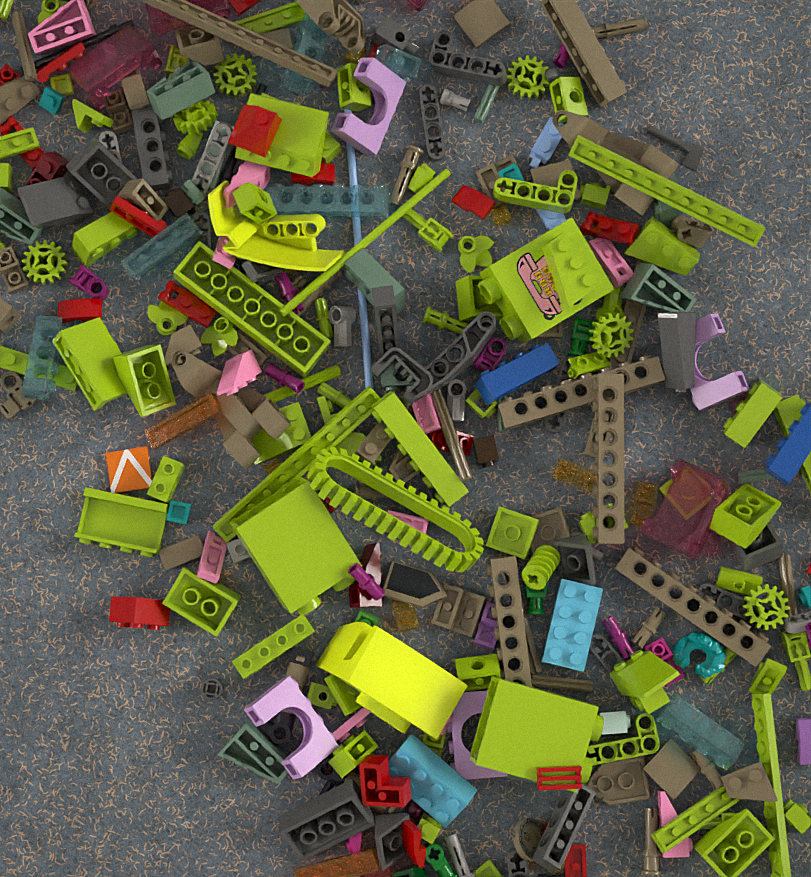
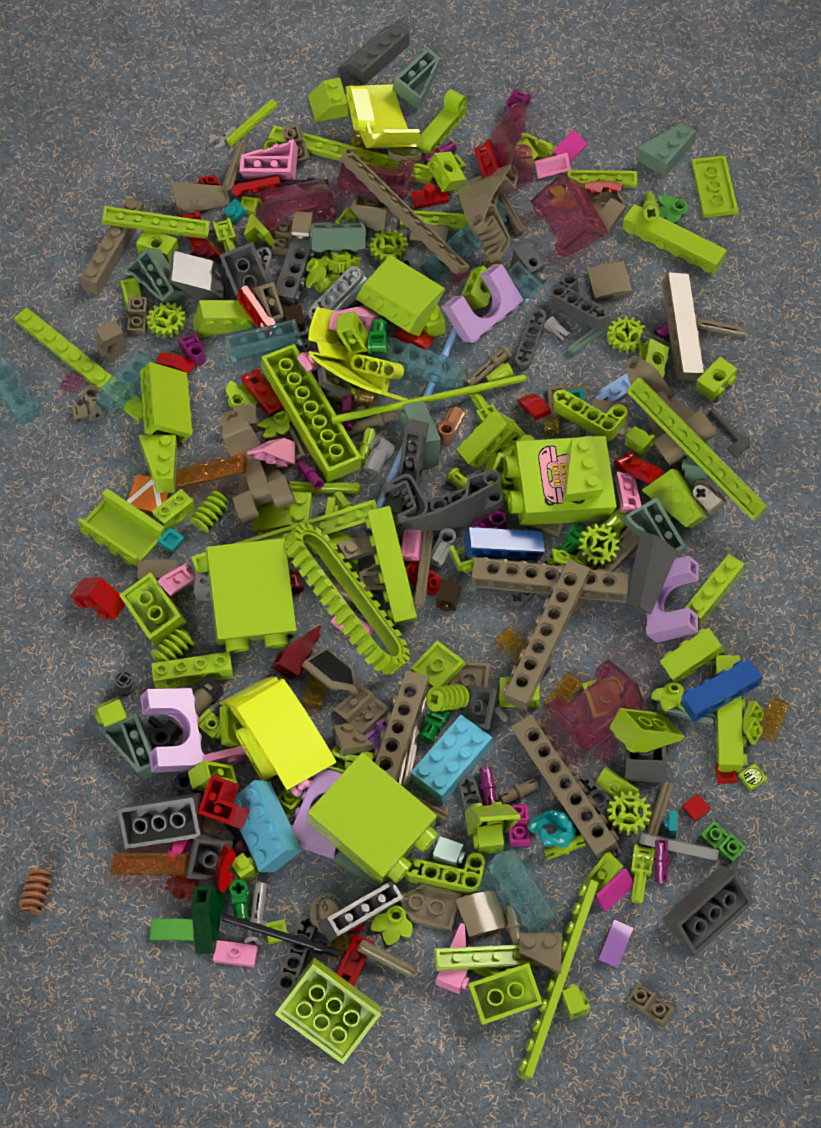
camera: 30 degrees right, 20 degrees down
(57, 135) = (225, 234): none -> lime connector
(123, 428) = (161, 460): none -> lime wedge
(145, 378) = (198, 427): lime slope -> none
(178, 141) = (316, 270): none -> lime plate
(193, 192) = (308, 311): sand green pin -> none
(203, 464) = (209, 510): none -> lime piece
(217, 731) = (109, 712): none -> lime brick
(241, 630) = (172, 646): none -> lime piece
(255, 130) = (381, 280): red slope -> none
(283, 197) = (378, 338): none -> green connector
(366, 581) = (293, 644): magenta pin -> none
(399, 257) = (450, 425): none -> nougat piece
(447, 261) = (488, 438): none -> lime wedge
(466, 652) = (350, 740): none -> dark tan wing
(578, 777) = (392, 855): red tile -> none
(596, 819) = (392, 928): none -> lime plate
(605, 856) = (386, 958): none -> dark tan axle
(644, 80) = (721, 371): none -> lime brick
(651, 852) = (428, 975): dark tan pin -> none
(740, 331) = (716, 588): none -> lime brick
(748, 467) = (669, 696): none -> lime plate
(782, 690) = (614, 890): none -> dark pink slope

